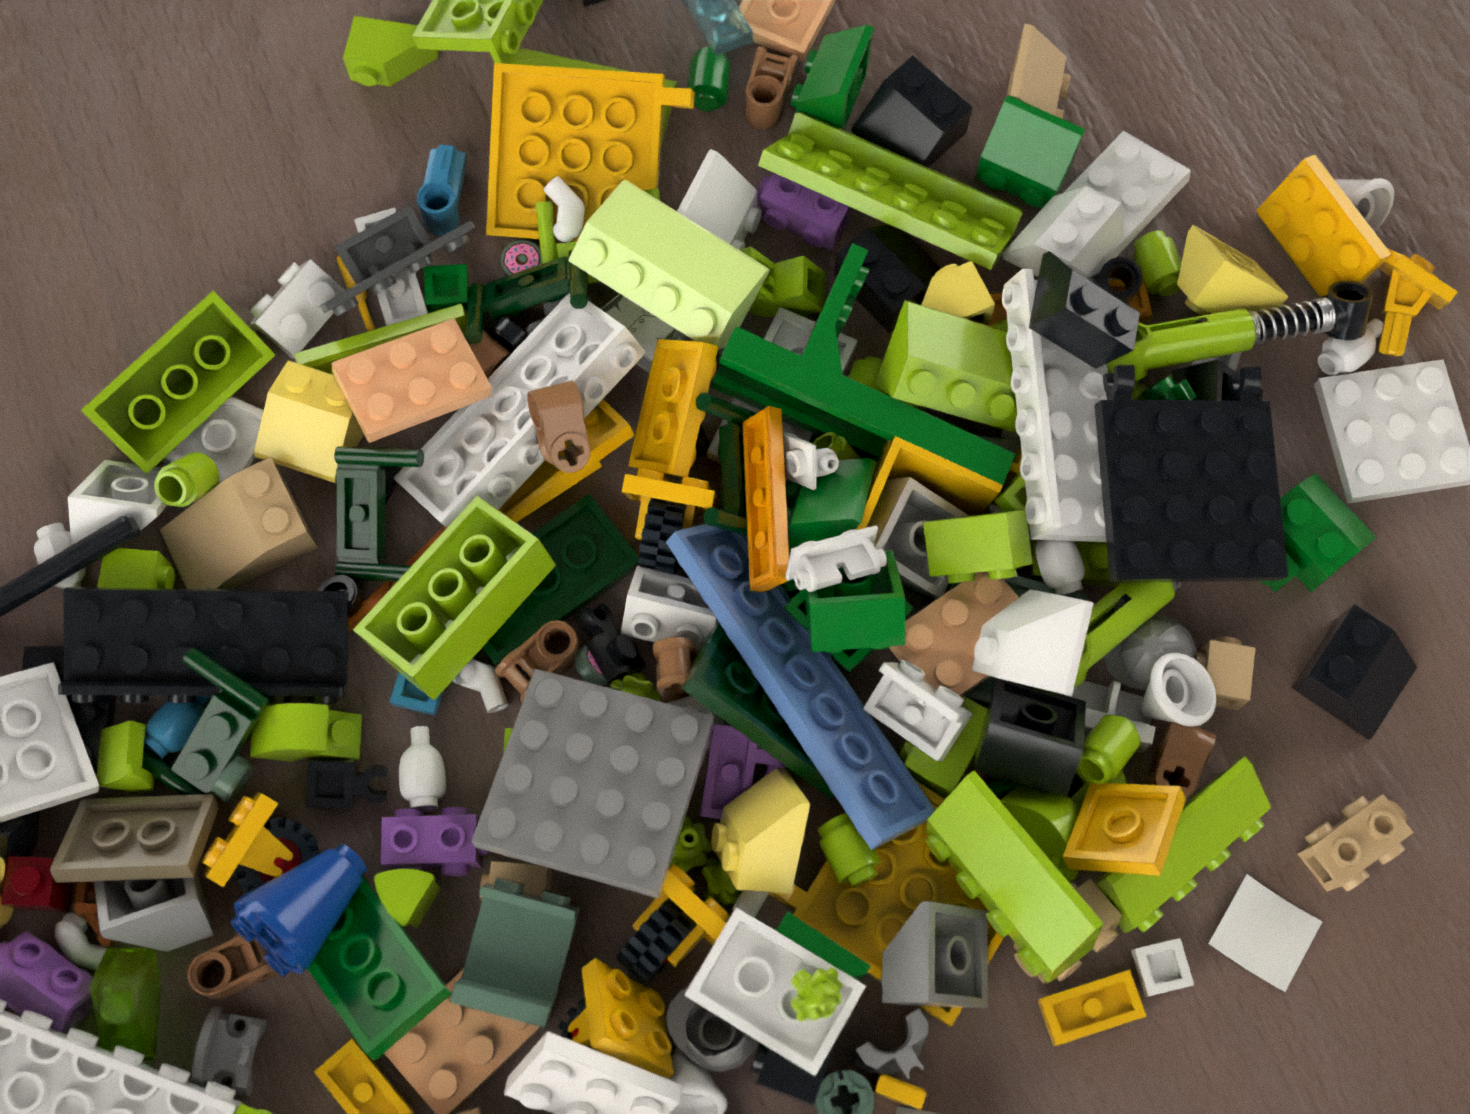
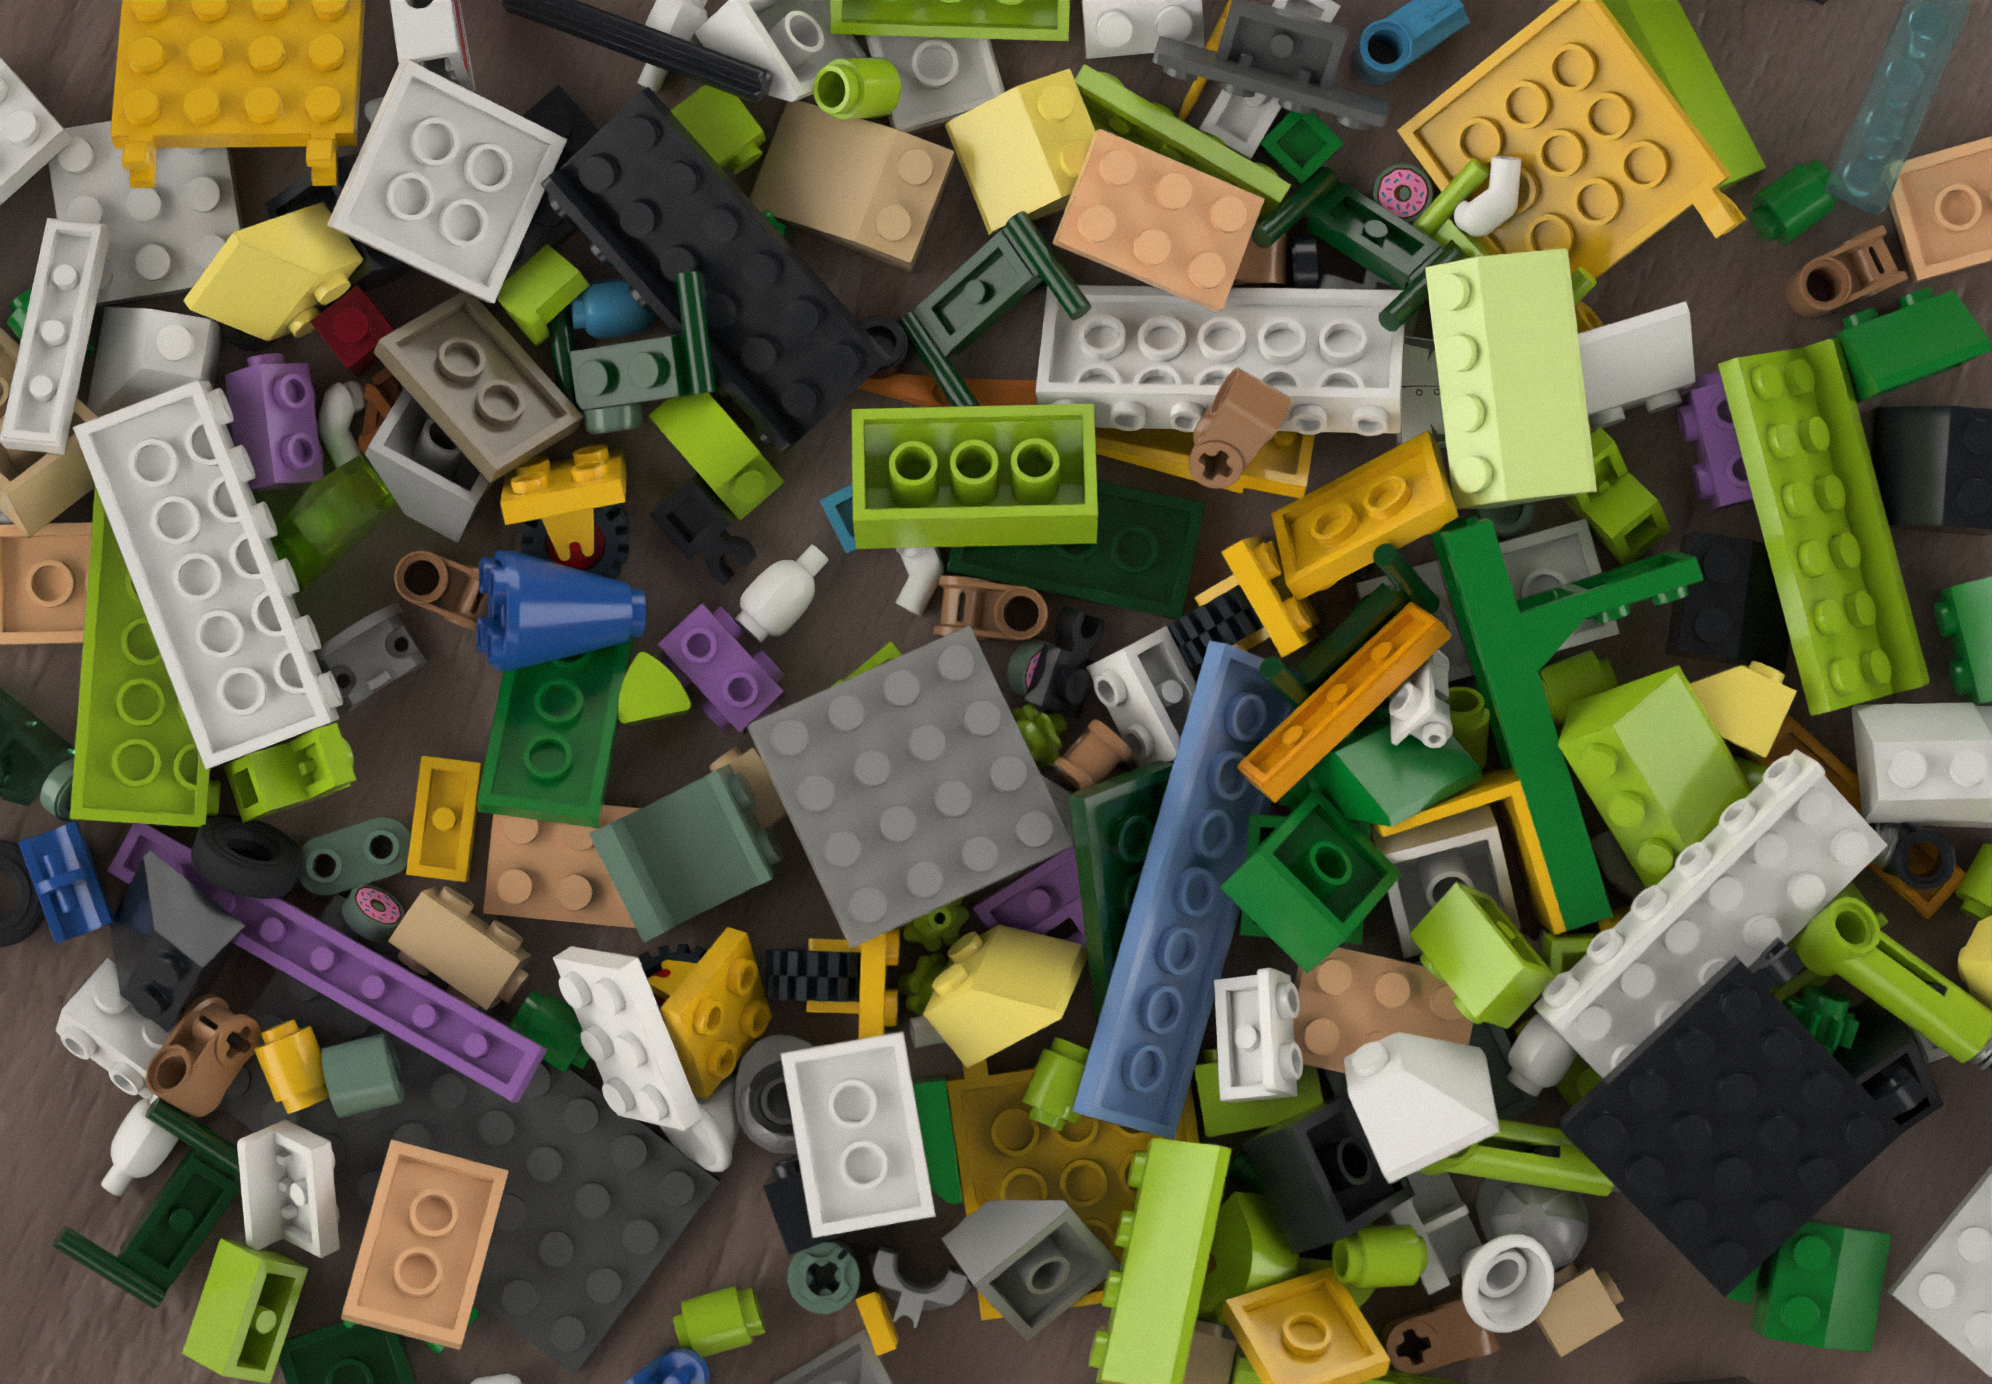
camera: 50 degrees right, 15 degrees up
(816, 994) = (884, 1179): lime plant -> none
(817, 563) = (1352, 840): white hinge -> none
(1081, 314) = (1825, 861): black slope -> none

